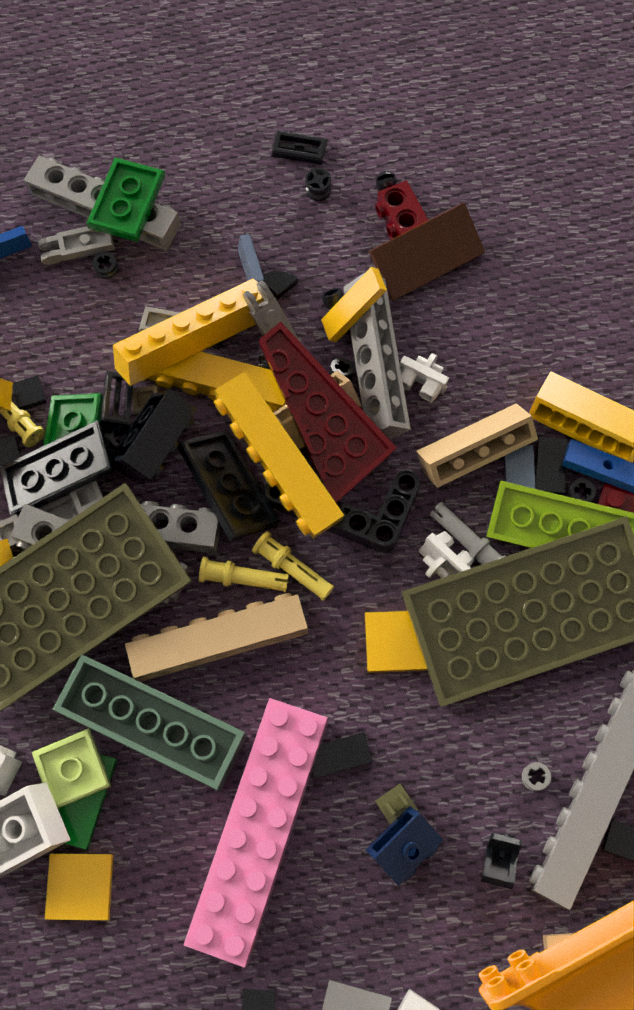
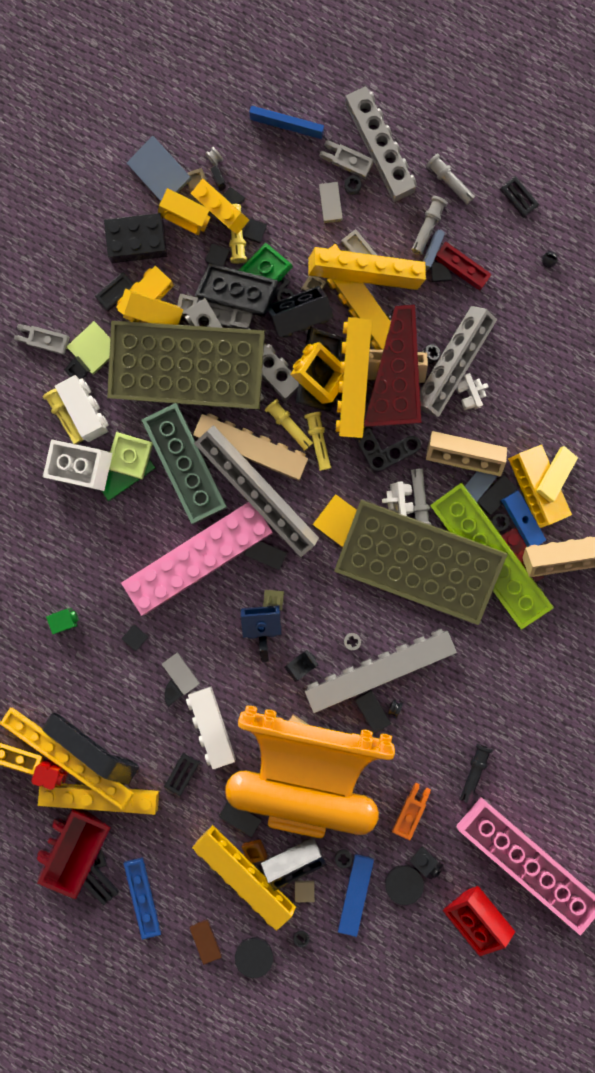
camera: 40 degrees right, 15 degrees up
(79, 887) = (92, 515): yellow tile -> none
(94, 300) = (330, 202): none -> light grey tile
(114, 419) = (287, 285): black tile -> none
(126, 199) = (393, 155): green tile -> none
(200, 181) = (444, 173): none -> light grey pin
(222, 232) = (432, 217): none -> light grey pin
(226, 503) = (330, 391): none -> yellow window
(267, 682) = (257, 491): none -> light grey brick
(268, 312) = (416, 292): light grey hinge -> none
(298, 256) = (462, 266): none -> dark red plate
(321, 178) = (510, 225): black wheel -> none
(331, 297) = (461, 307): black hinge -> none
(353, 304) = (466, 322): yellow tile -> none
(407, 211) = (544, 288): dark red brick -> none
(427, 251) = (535, 321): reddish brown tile -> none
(436, 879) = (263, 647): none -> black tile
(597, 388) = (557, 474): none -> light yellow tile

